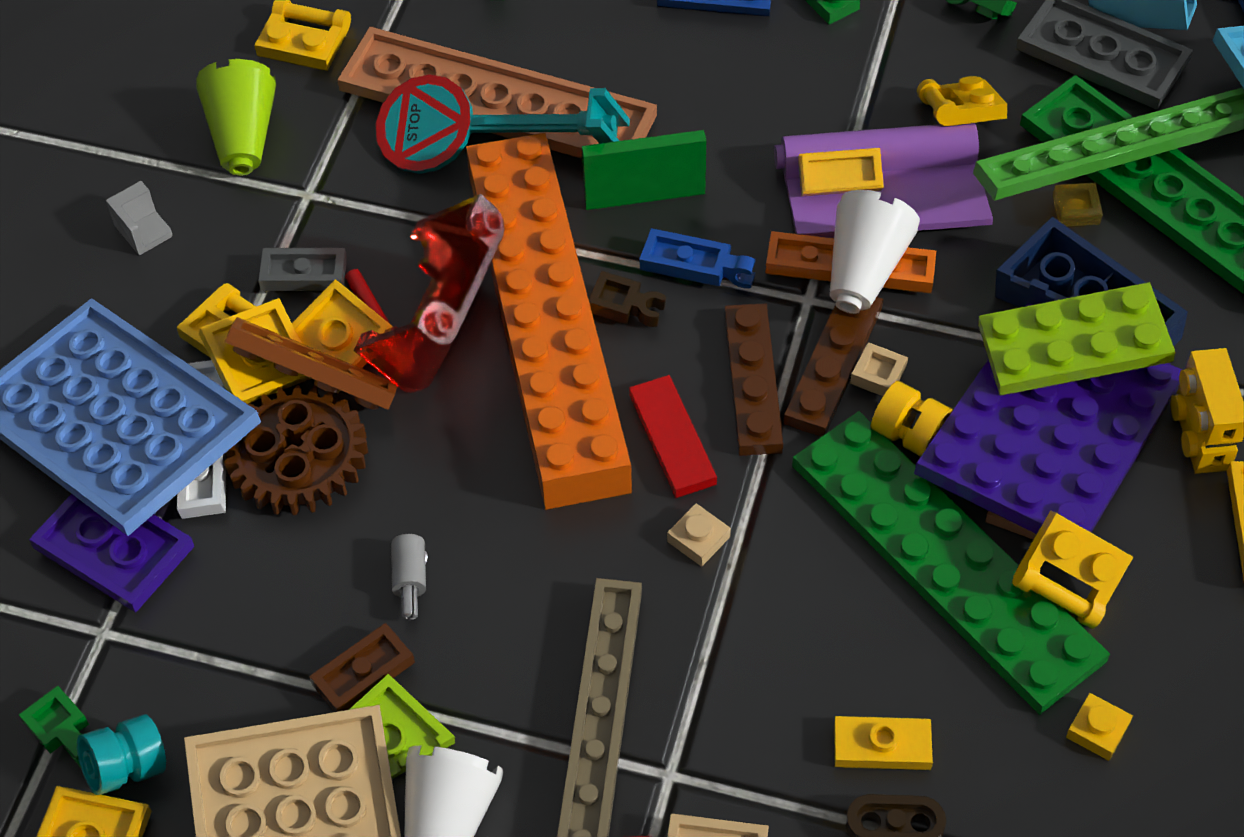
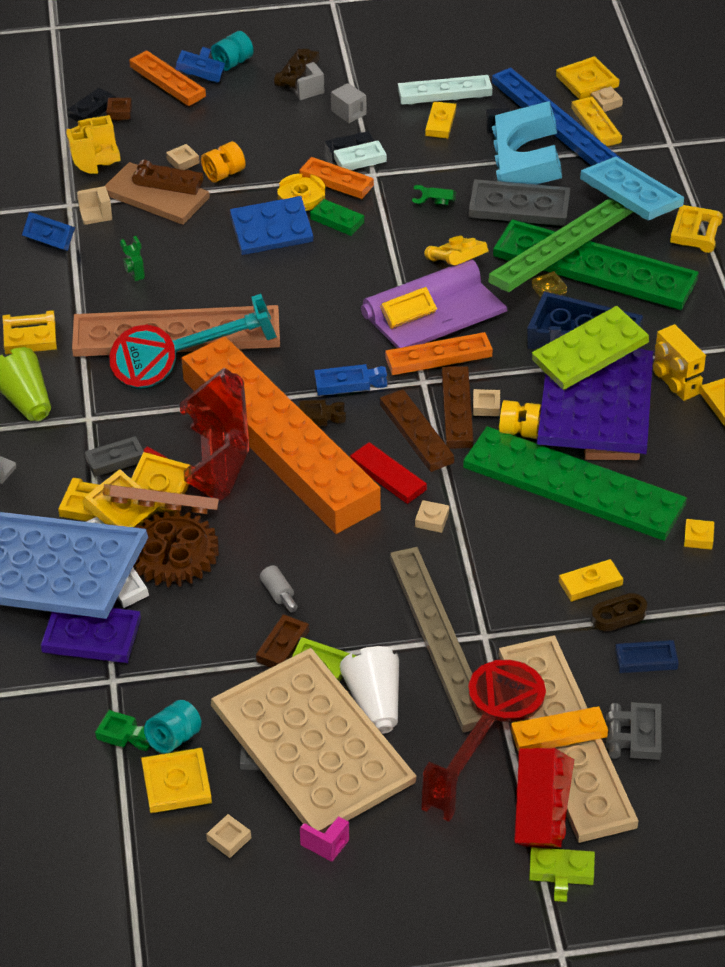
camera: 25 degrees left, 10 degrees down
(644, 169) = (295, 339): green tile -> none
(867, 246) = (450, 335): white cone -> none
(1080, 556) = (651, 453): yellow plate -> none

